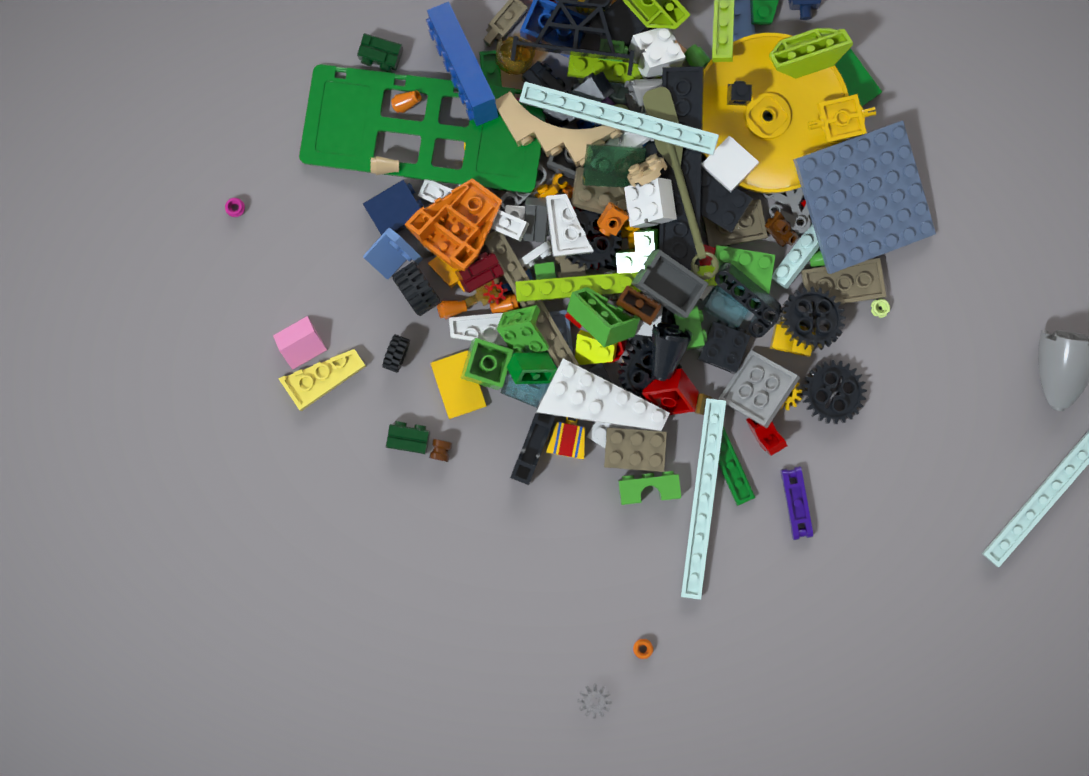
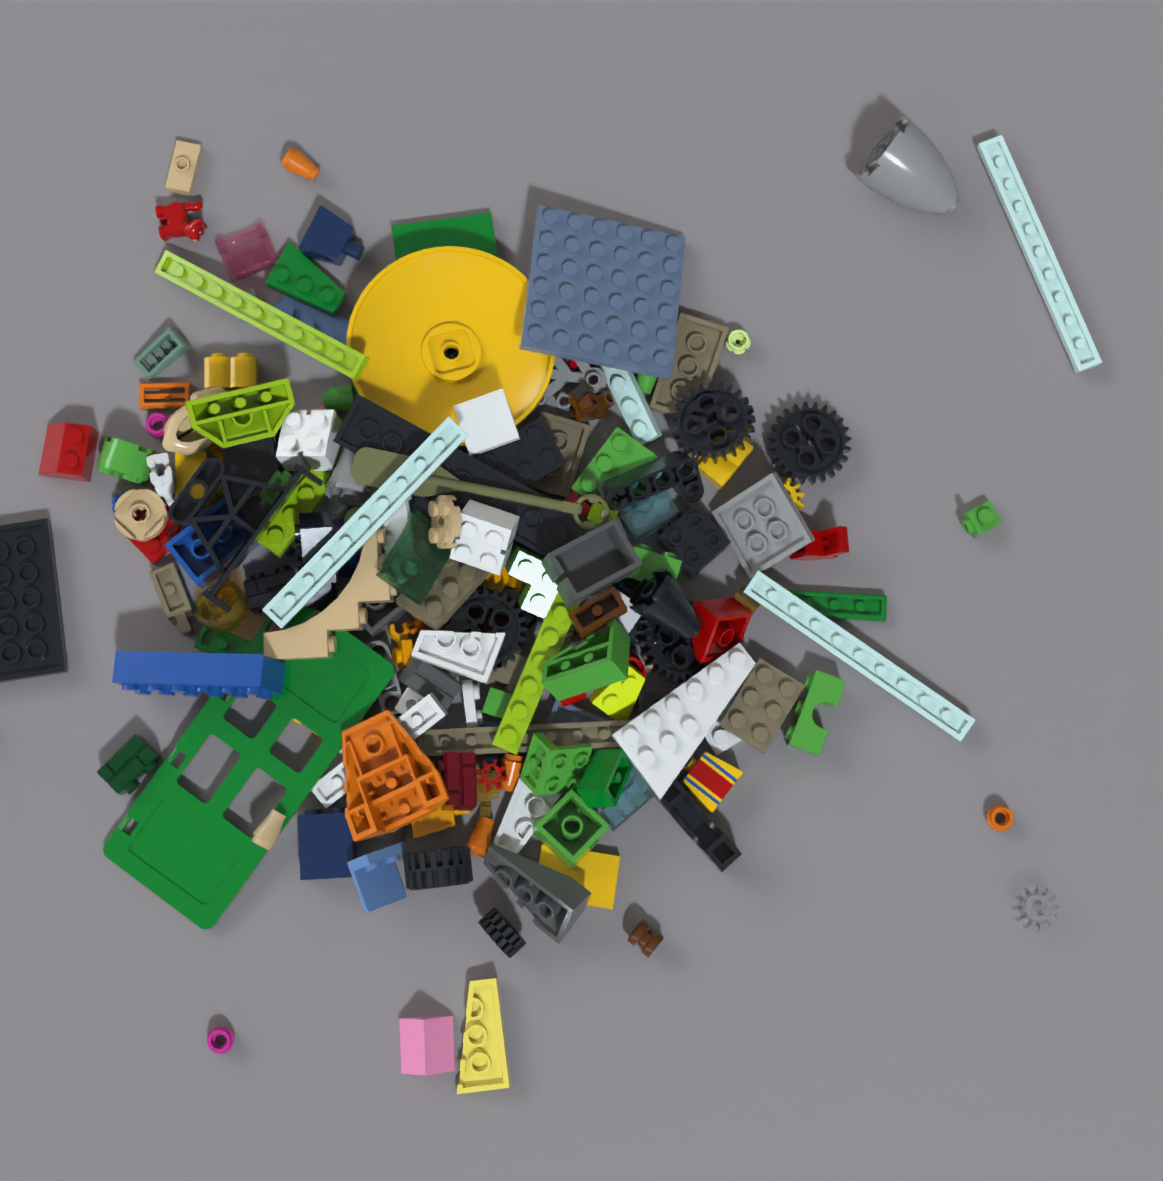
camera: 65 degrees left, 5 degrees down
(404, 101) = (205, 765): orange cone -> none
(408, 438) = (611, 970): dark green brick -> none
(436, 371) = (546, 893): none -> dark grey wedge
(611, 213) = (472, 588): orange brick -> none
(739, 93) = (410, 370): black brick -> none
(797, 503) = (916, 551): dark purple plate -> none
(810, 51) = (405, 264): lime wedge -> none
(841, 118) = (501, 270): yellow plate -> none
(842, 536) = (980, 519): none -> bright green bracket

